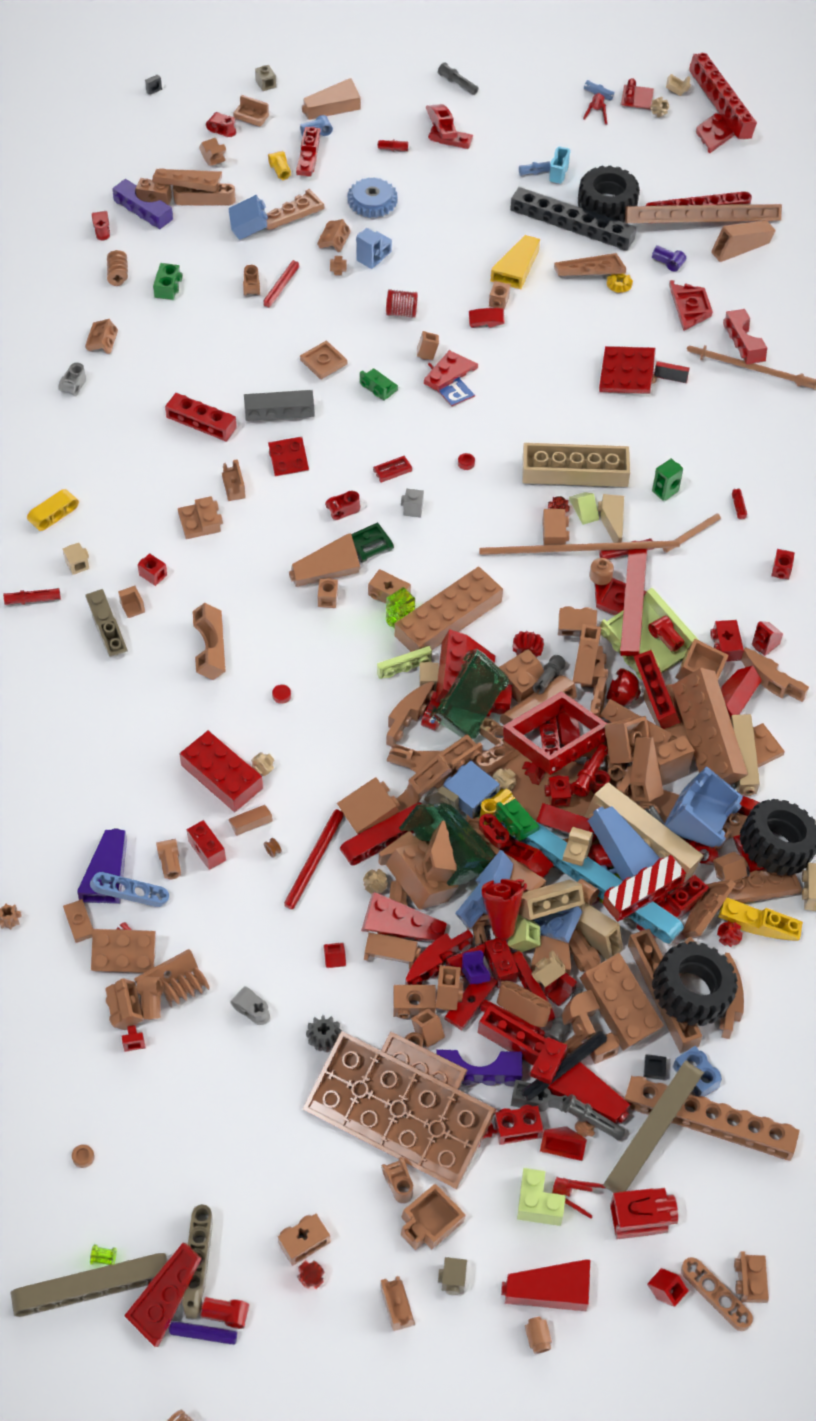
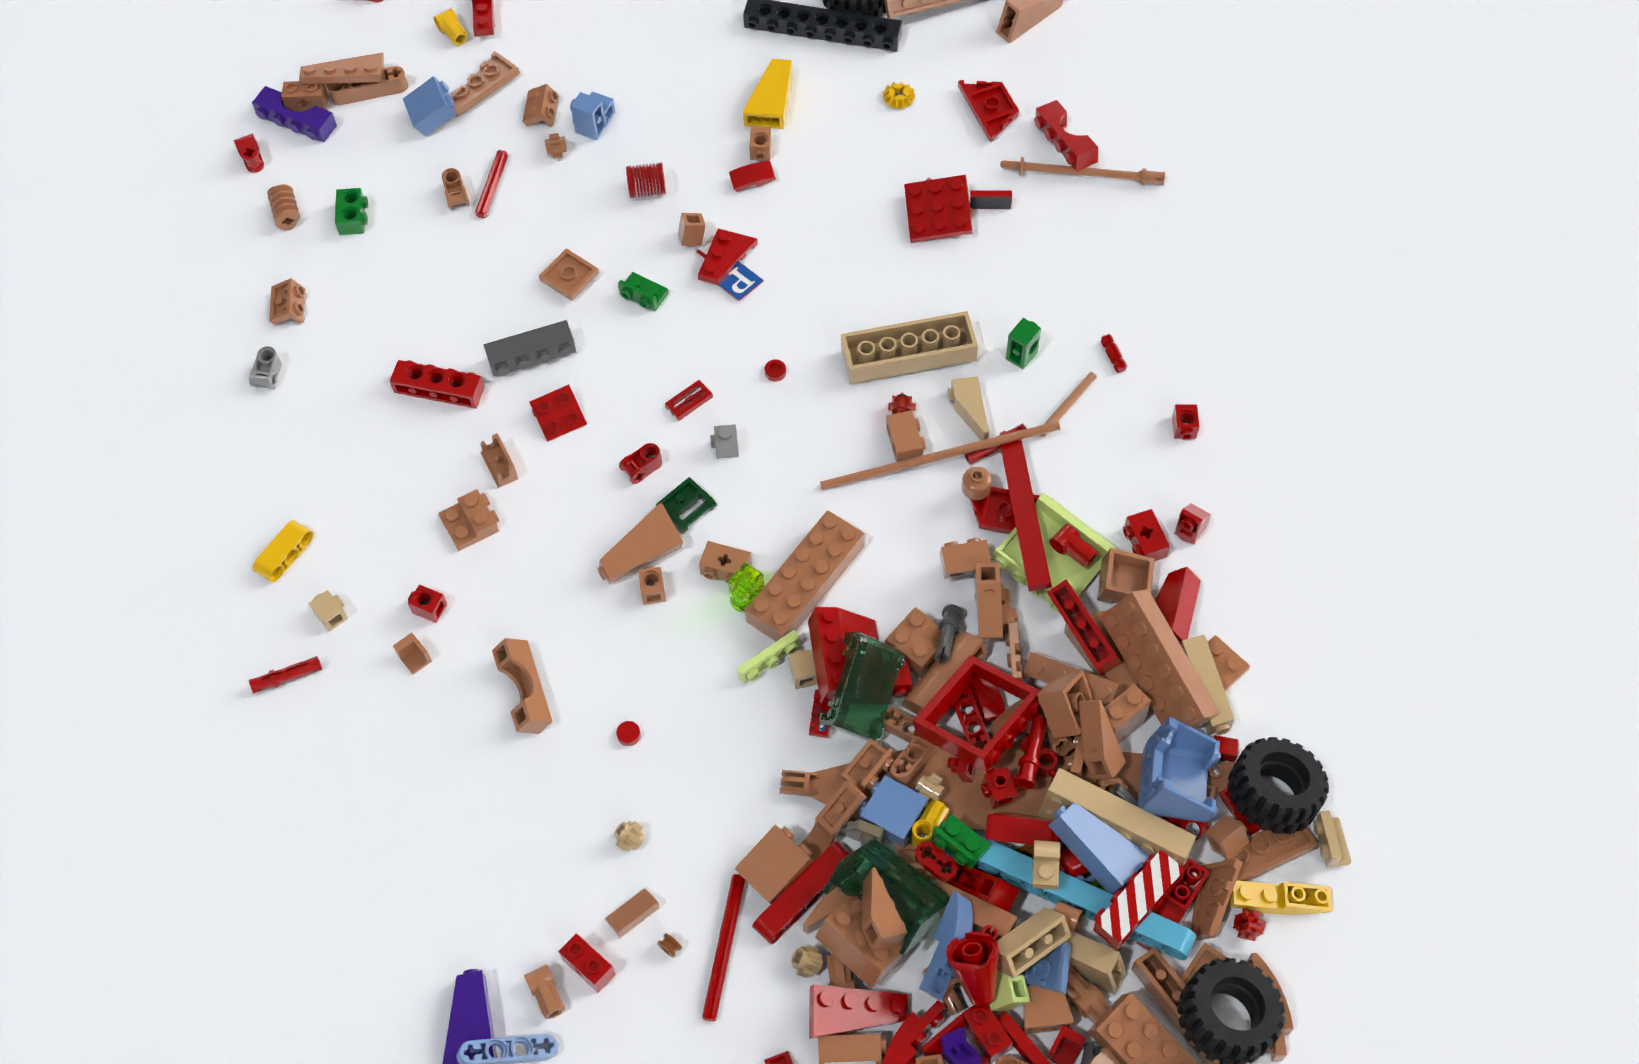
camera: 10 degrees left, 5 degrees up
(106, 623) = (388, 691): dark tan slope -> none
(212, 151) = (364, 28): nougat brick -> none
(221, 771) = (580, 857): red brick -> none
(372, 197) = (574, 46): medium blue gear -> none
(408, 709) = (788, 719): nougat slope -> none
(528, 640) = (911, 596): red gear -> none
(548, 969) = (1049, 1032): tan brick -> none
(585, 507) = (932, 398): yellowish green slope -> none
(591, 265) = (863, 80): nougat wing -> none
(624, 688) = (1040, 631): red cylinder -> none
(673, 260) = (955, 52): dark purple piece -> none
(772, 679) = (1213, 576): nougat slope -> none

